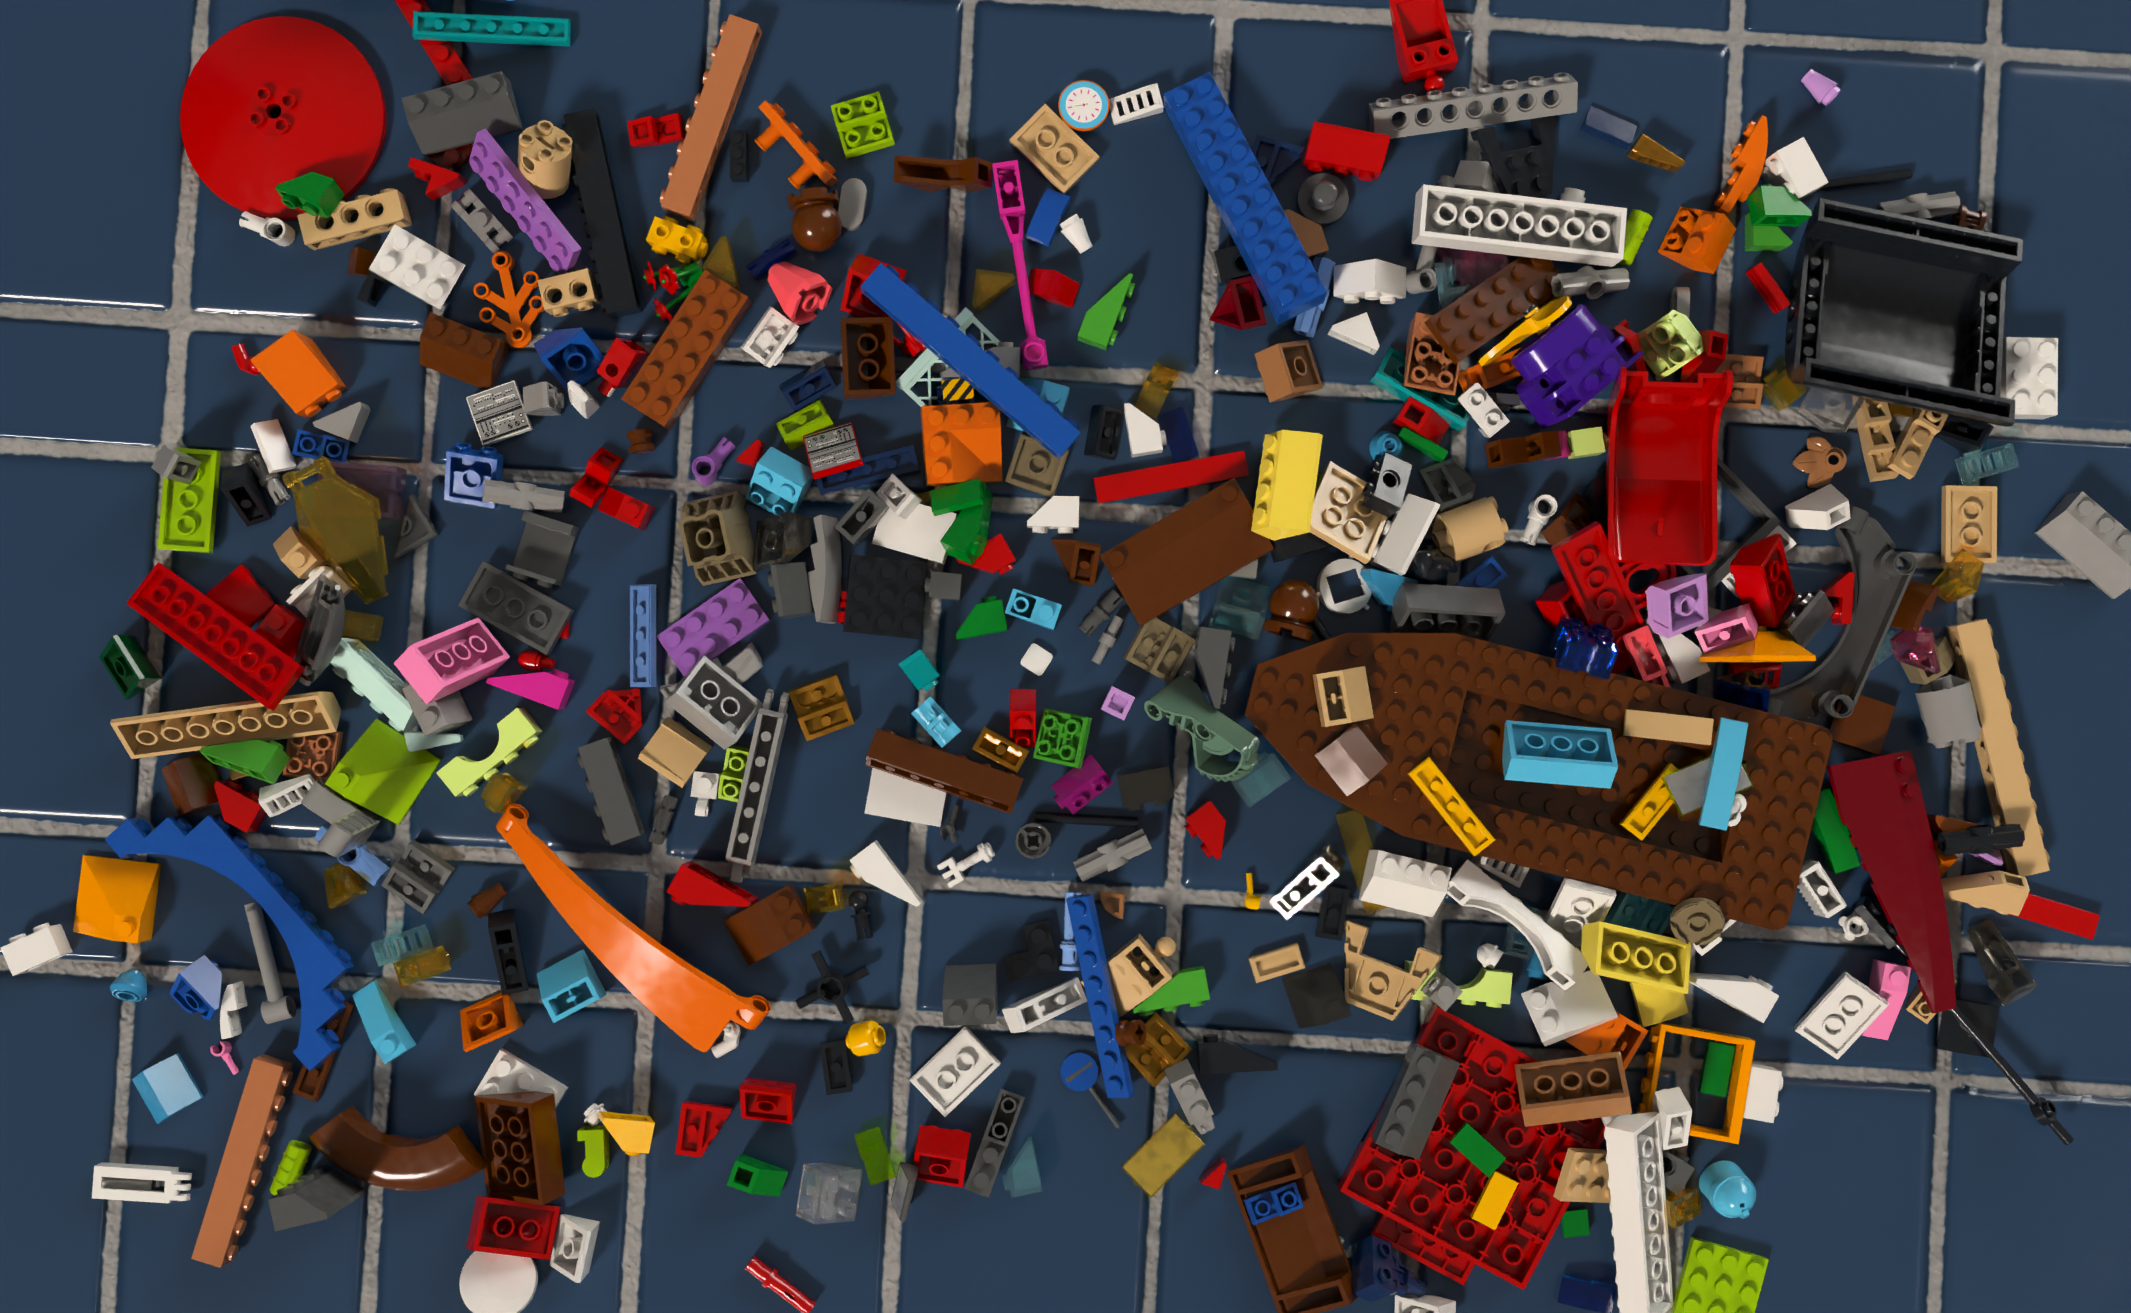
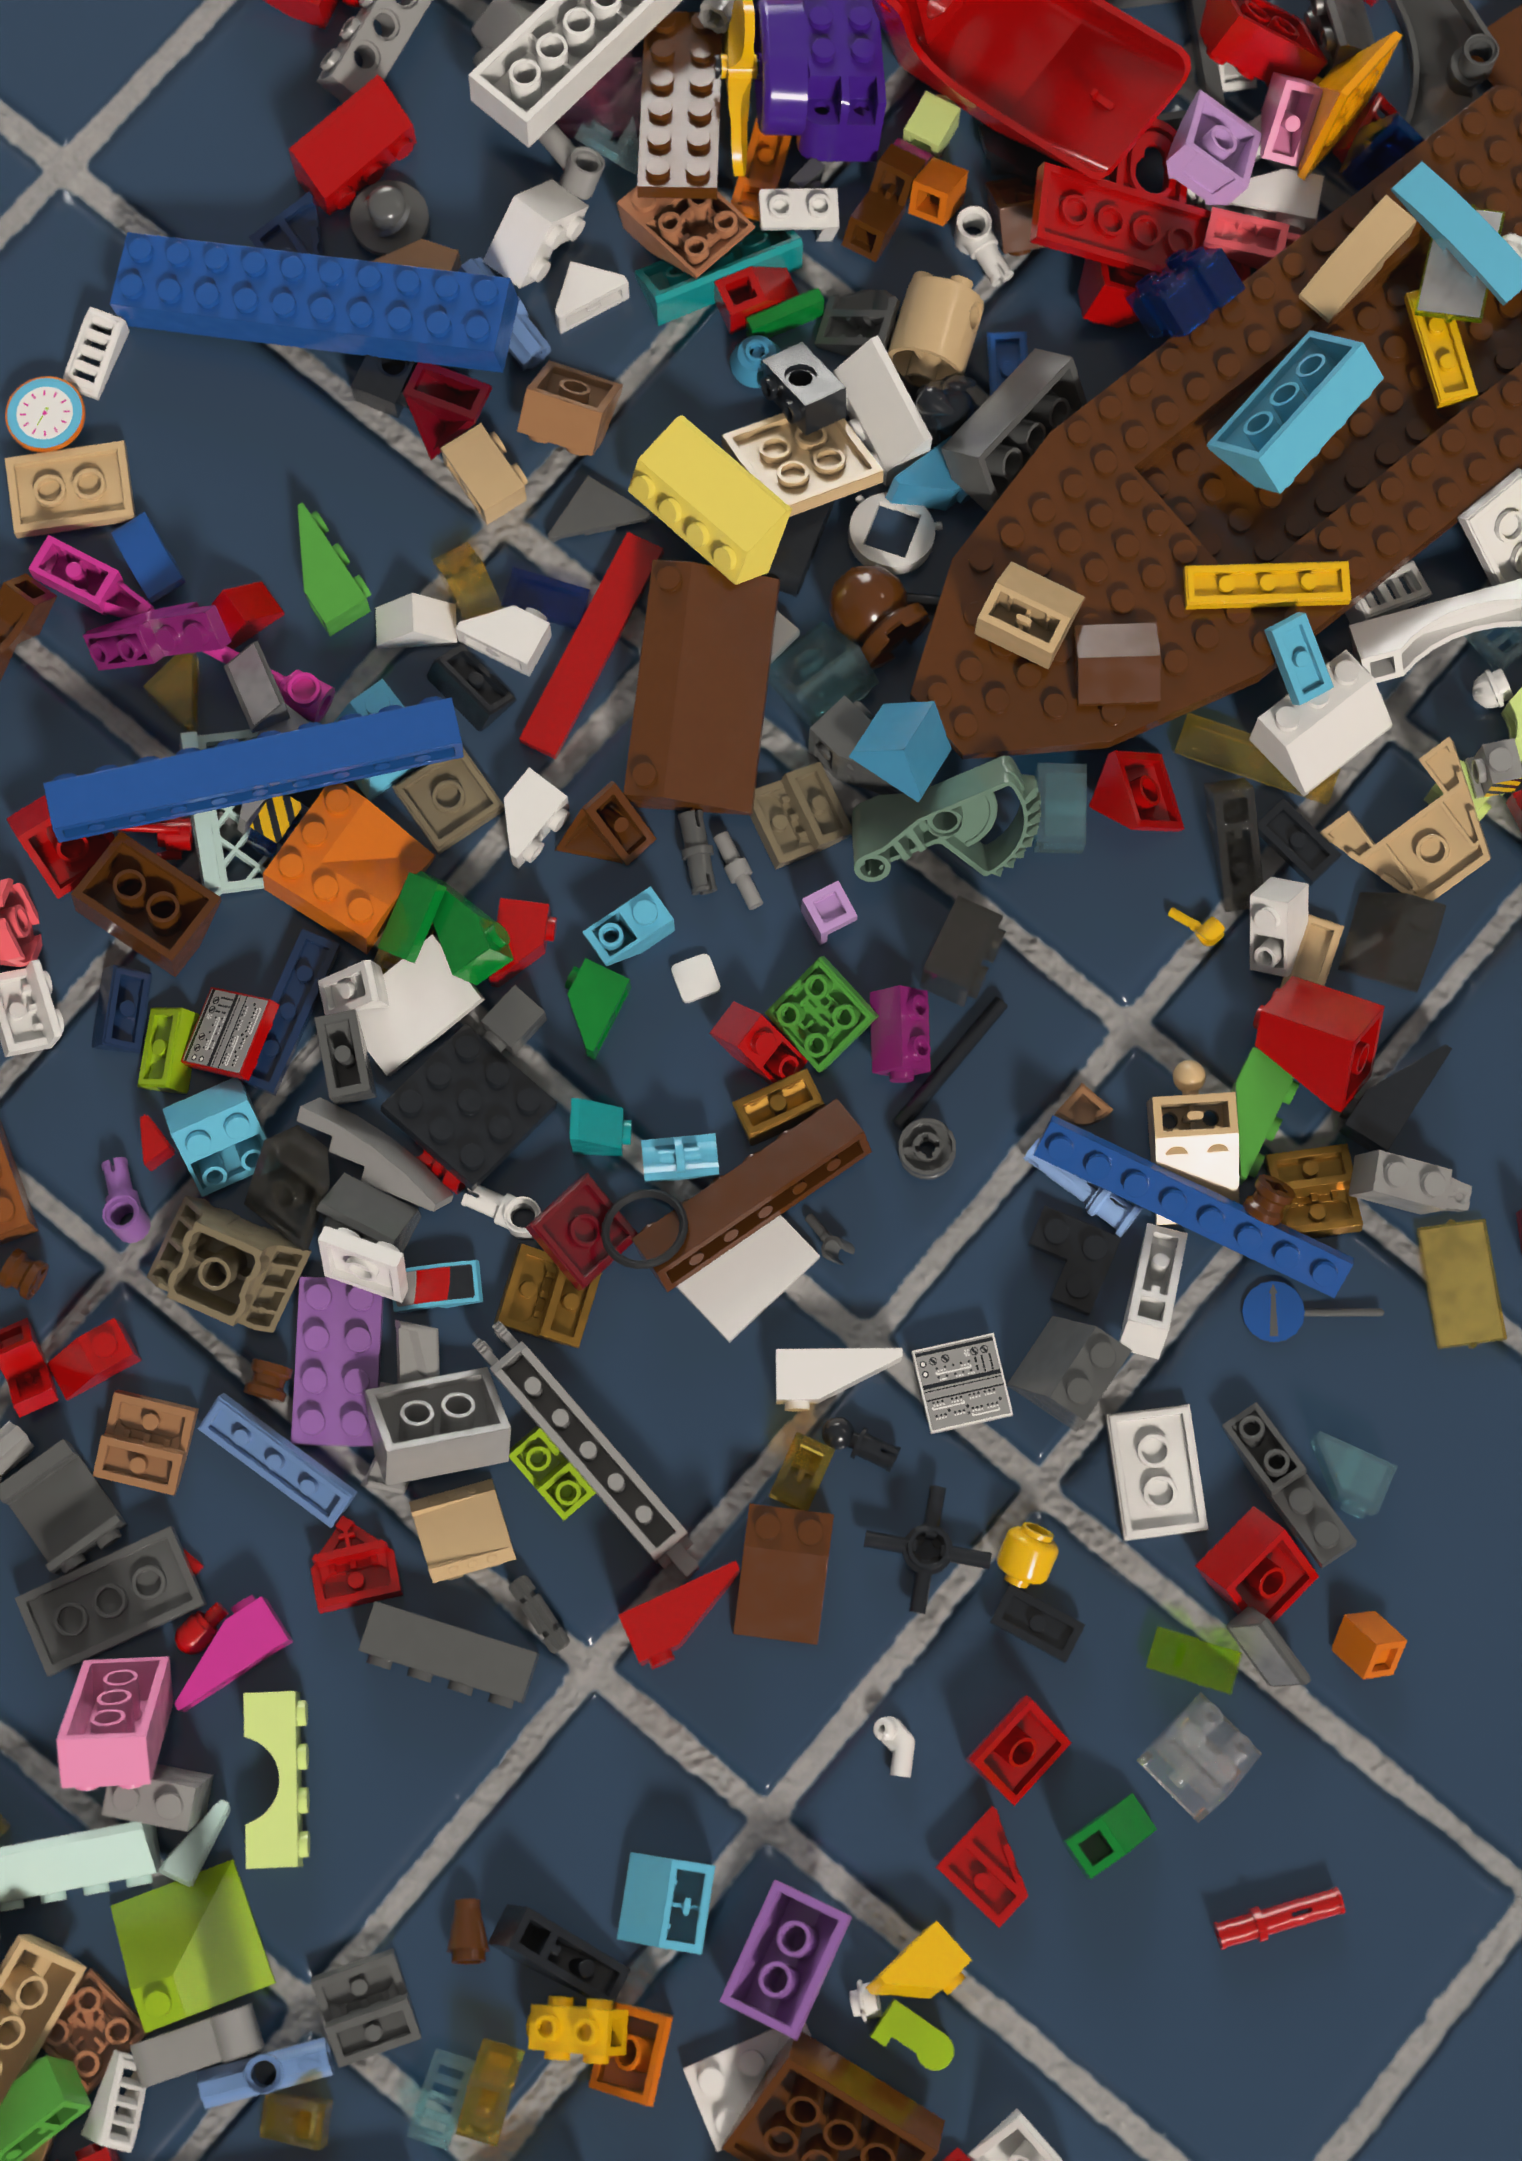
camera: 55 degrees left, 10 degrees down
(478, 987) = (586, 2030): none -> yellow brick
(501, 791) = (340, 1802): clear yellow slope -> none
(582, 1065) = (785, 1959): none -> medium lavender slope
(605, 564) = (145, 1442): none -> medium nougat slope
(662, 981) = (754, 1765): orange panel -> none
(677, 602) = (268, 1380): none -> reddish brown wheel
(704, 787) = (539, 1528): white plate -> none
(765, 614) = (362, 1263): none -> white plate
(785, 648) = (441, 1286): none -> slope
(846, 652) = (501, 1208): none -> white pin
(863, 701) = (572, 1231): none -> dark red tile
(880, 754) = (644, 1264): none -> black tyre
(927, 944) = (962, 1383): none -> light grey tile
(945, 1237) = (1369, 1644): none -> orange panel
(984, 853) = (896, 1222): white hinge -> none
(1007, 254) = (157, 634): none -> magenta slope
(1015, 328) = (256, 688): none -> flat silver slope
(1076, 233) = (195, 538): white cone -> none
(1112, 855) = (1020, 1062): light grey piece -> none
(1115, 379) = (416, 622): none -> white slope
(1209, 827) = (1075, 914): red slope -> none
(1220, 354) = (484, 473): none -> tan brick
(1224, 682) = (904, 746): none -> dark azure slope
(1233, 999) = (1320, 1038): none -> red slope
(1244, 425) = (596, 511): none -> dark grey tile
(1279, 934) = (1277, 925): none -> white slope
(1296, 814) = (1137, 792): none -> red slope
(1423, 851) = (1299, 658): none -> medium azure plate
(1549, 474) = (938, 191): none -> orange brick

